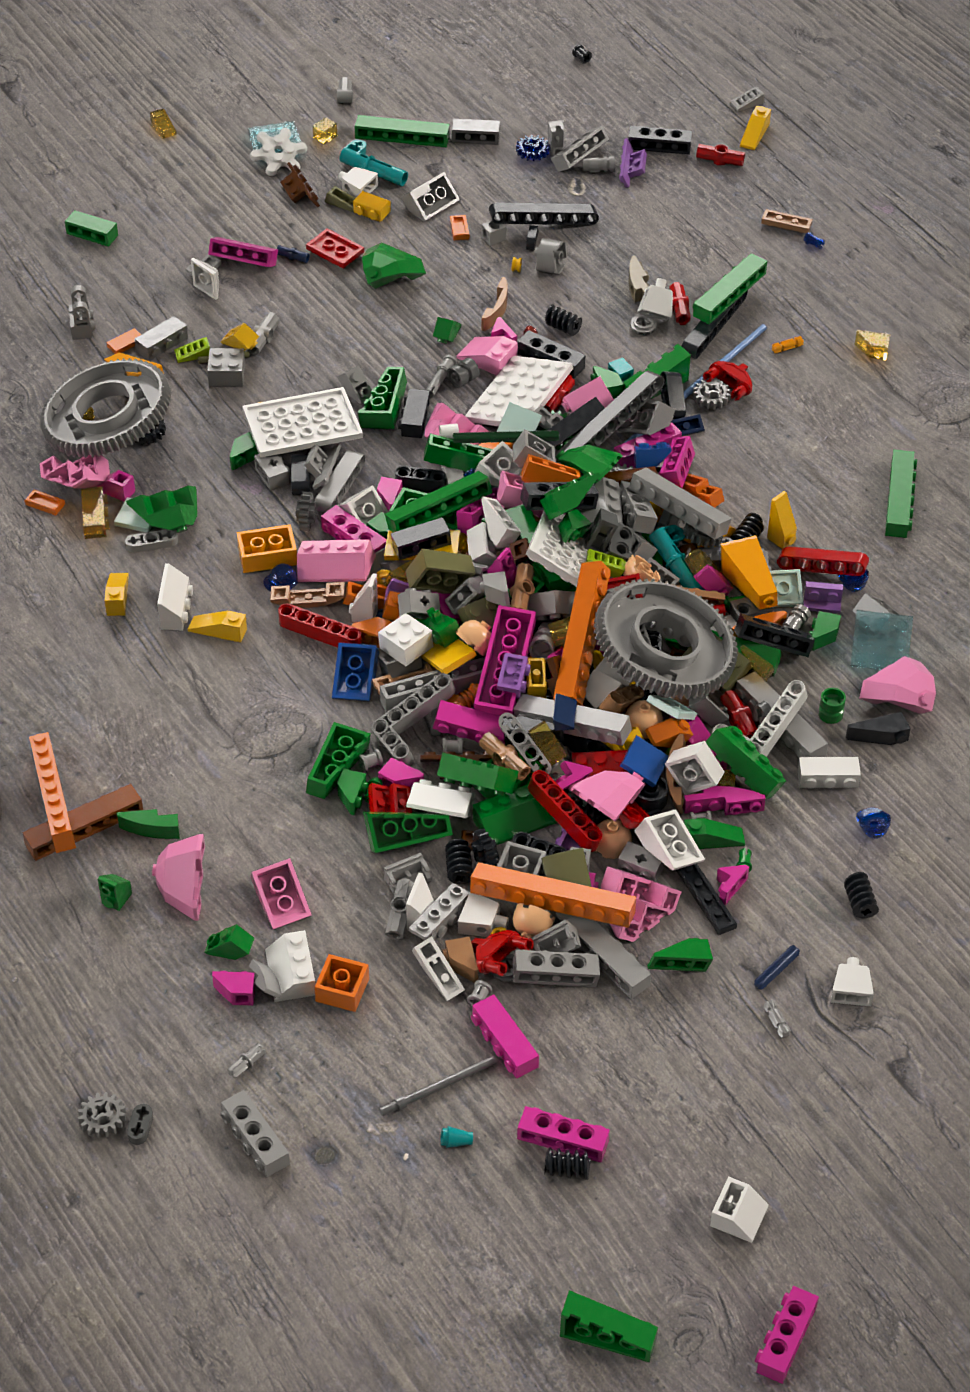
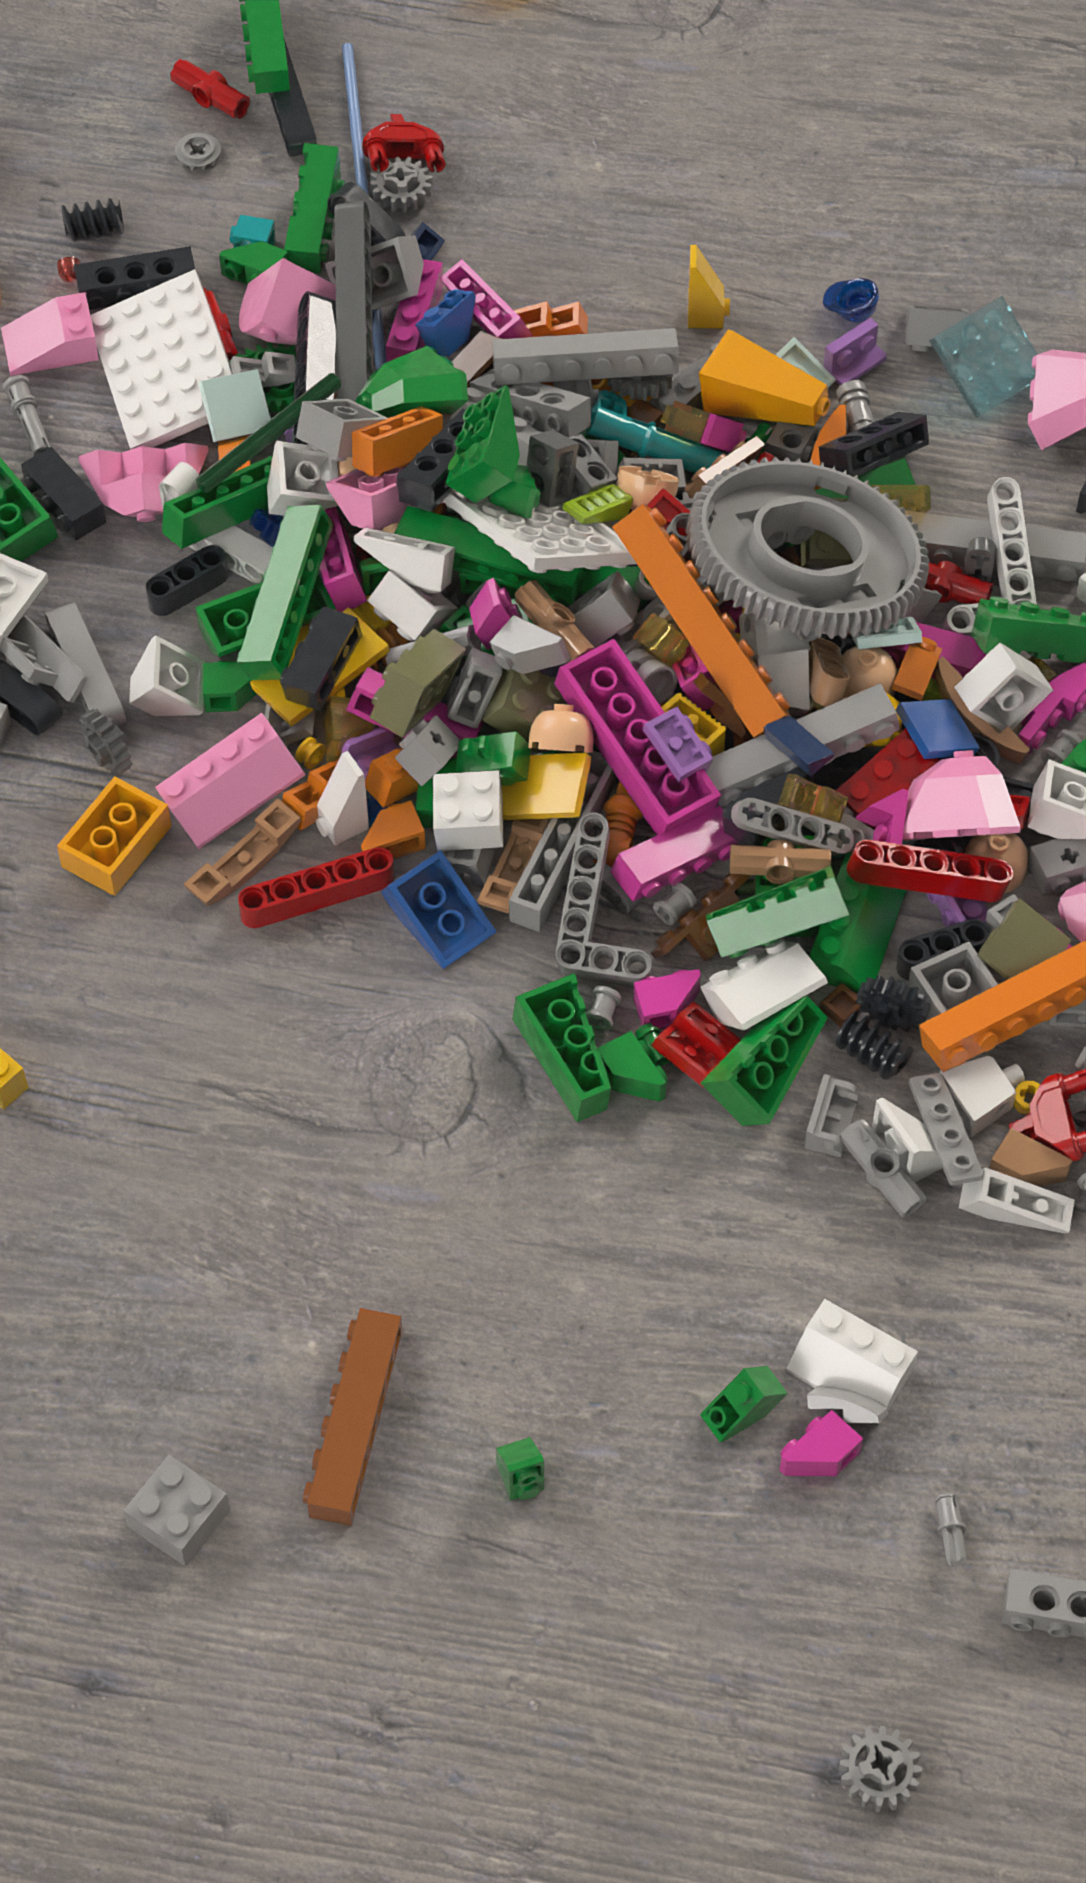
camera: 45 degrees left, 10 degrees up
(52, 792) = (282, 1412): orange brick -> none
(136, 1123) = (925, 1738): dark grey beam -> none
(150, 824) = (444, 1338): green slope -> none
(174, 599) = (82, 1010): white slope -> none
(181, 874) = (584, 1370): bright pink brick -> none
(222, 625) = (180, 994): yellow slope -> none
(280, 894) = (720, 1280): bright pink slope -> none
(281, 576) = (173, 863): clear blue hat -> none
(341, 983) = (942, 1324): orange brick -> none
(346, 527) = (182, 716): dark pink brick -> none
(388, 490) = (176, 627): slope -> none
(463, 372) = (57, 388): dark grey wheel -> none
(502, 329) = (34, 292): slope -> none
(518, 550) = (469, 583): reddish brown slope -> none
(531, 920) = (1049, 1046): light nougat cylinder -> none
(637, 279) = (117, 96): slope -> none
(657, 301) = (190, 104): white torso -> none
(750, 526) = (665, 317): black piece -> none
(787, 344) = (406, 50): light orange axle -> none
(825, 629) = (900, 388): green slope -> none
(830, 557) = (805, 304): red beam -> none
(832, 705) = (1033, 478): green wheel -> none
(900, 493) = (773, 151): brick -> none

